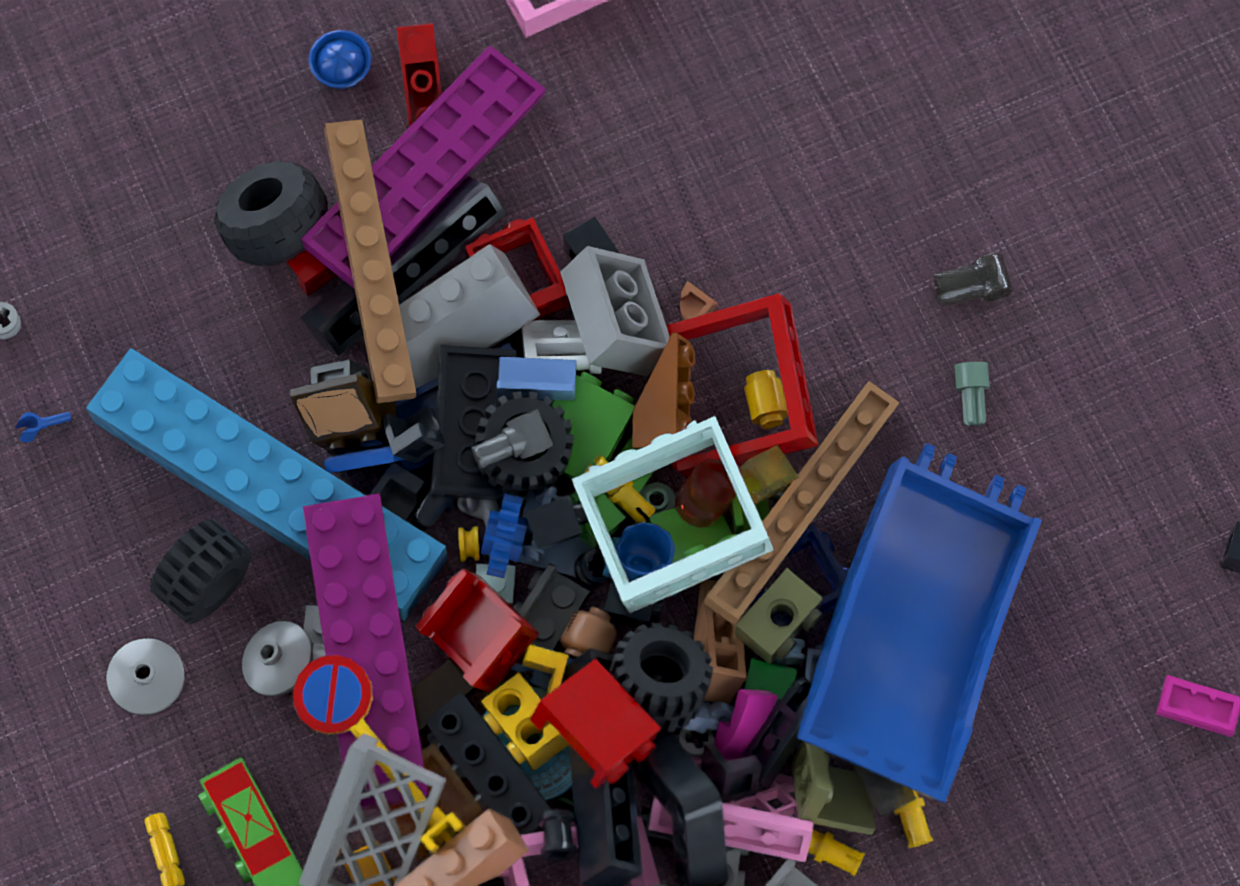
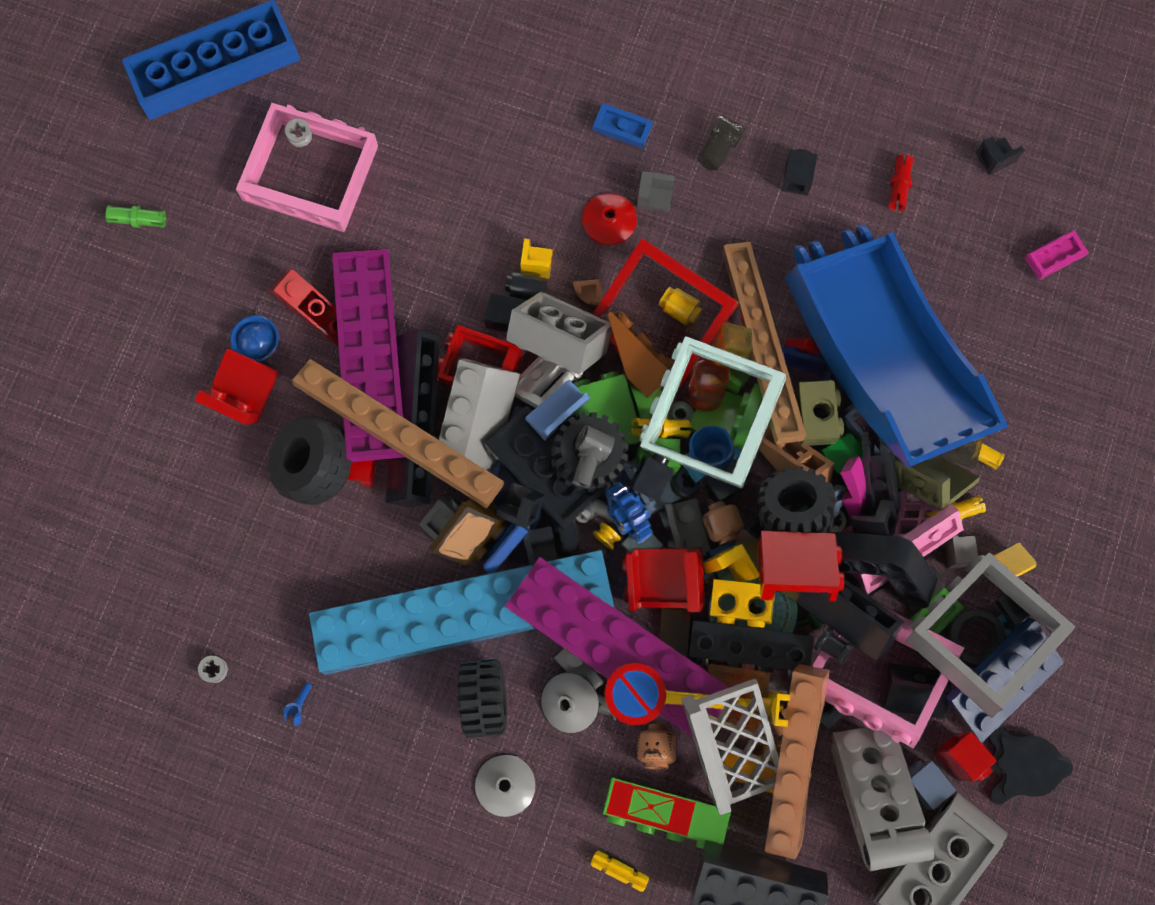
camera: 45 degrees left, 5 degrees up
(278, 91) = (239, 388): none -> red bracket
(310, 774) = (656, 747): none -> nougat head
(639, 241) = (525, 284): none -> black brick
(673, 227) = (536, 259): none -> yellow panel
(785, 271) = (606, 230): none -> red dish
(843, 547) = (804, 345): none -> red tile
(857, 269) = (655, 191): none -> dark grey panel
(893, 178) = (622, 125): none -> blue plate
(972, 380) = (775, 195): sand green piece -> none
(1021, 381) = (799, 171): none -> black brick
(1115, 487) = (901, 182): none -> red pin

